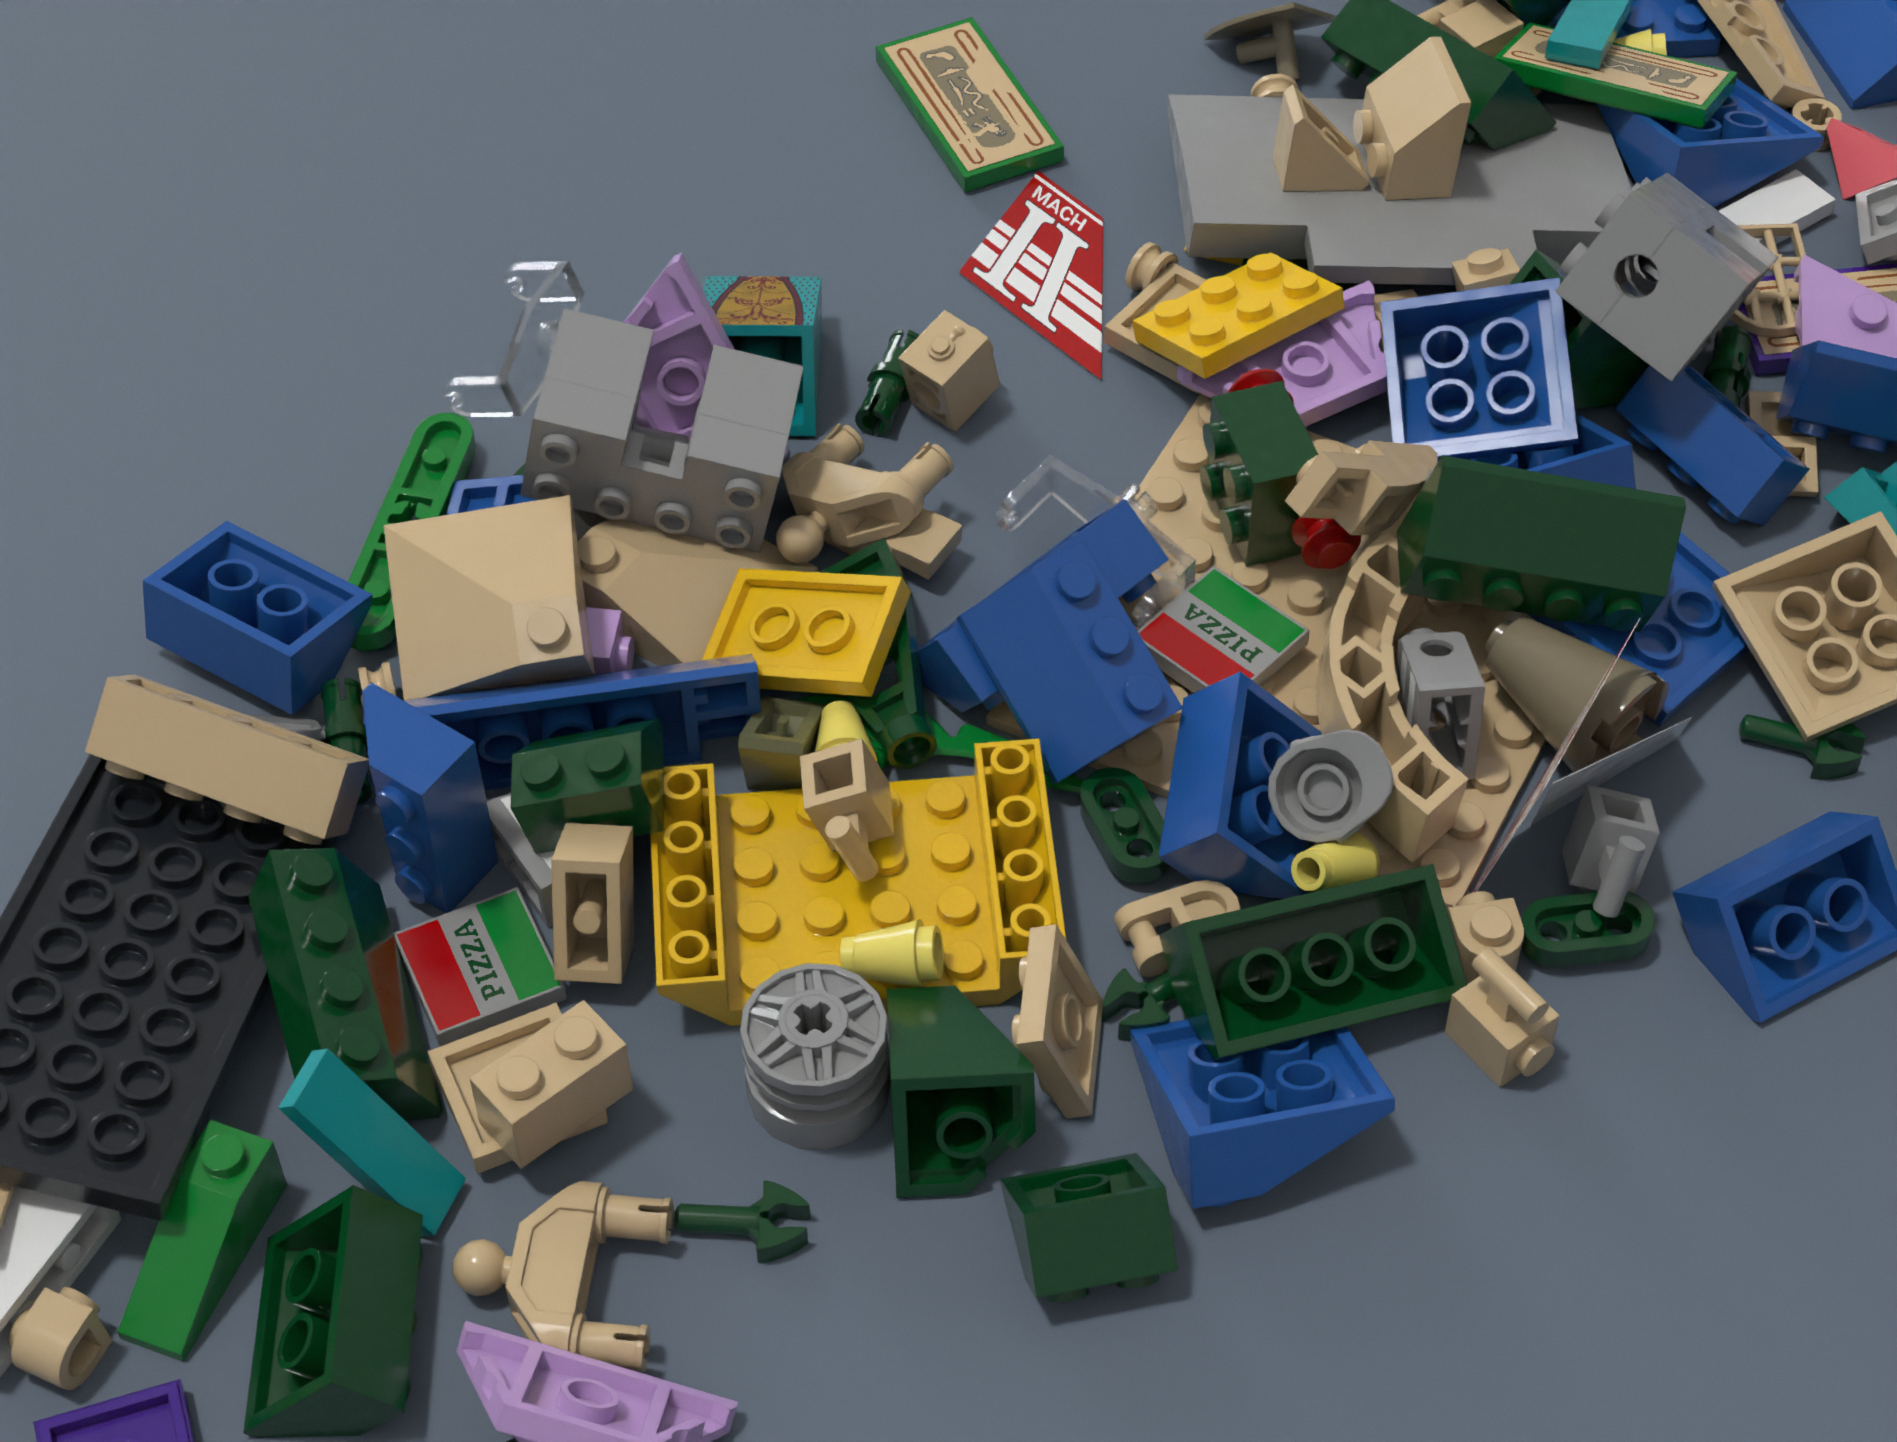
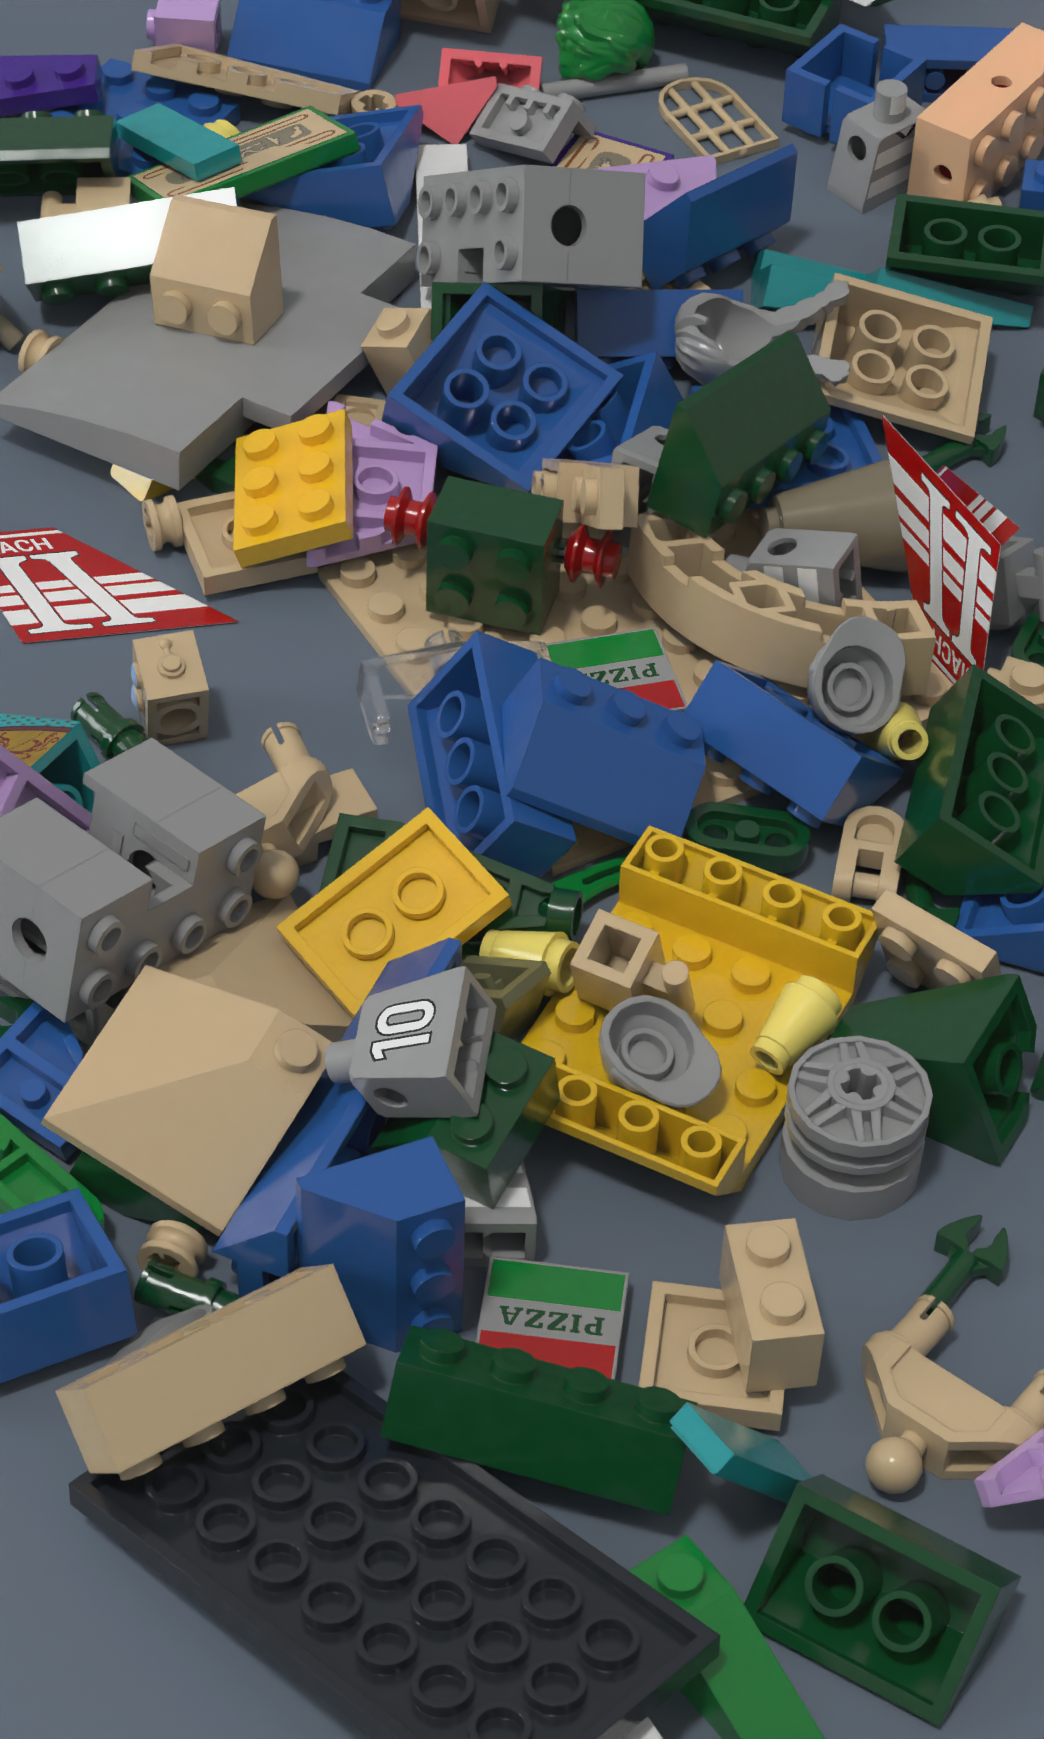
camera: 60 degrees left, 5 degrees down
(579, 694) = (420, 1047): none -> light grey torso
(593, 903) = (590, 1189): tan brick -> none
(771, 871) = (658, 1052): none -> light grey hat
(1312, 151) = (176, 344): tan slope -> none
(1726, 490) = (721, 332): none -> light grey hair

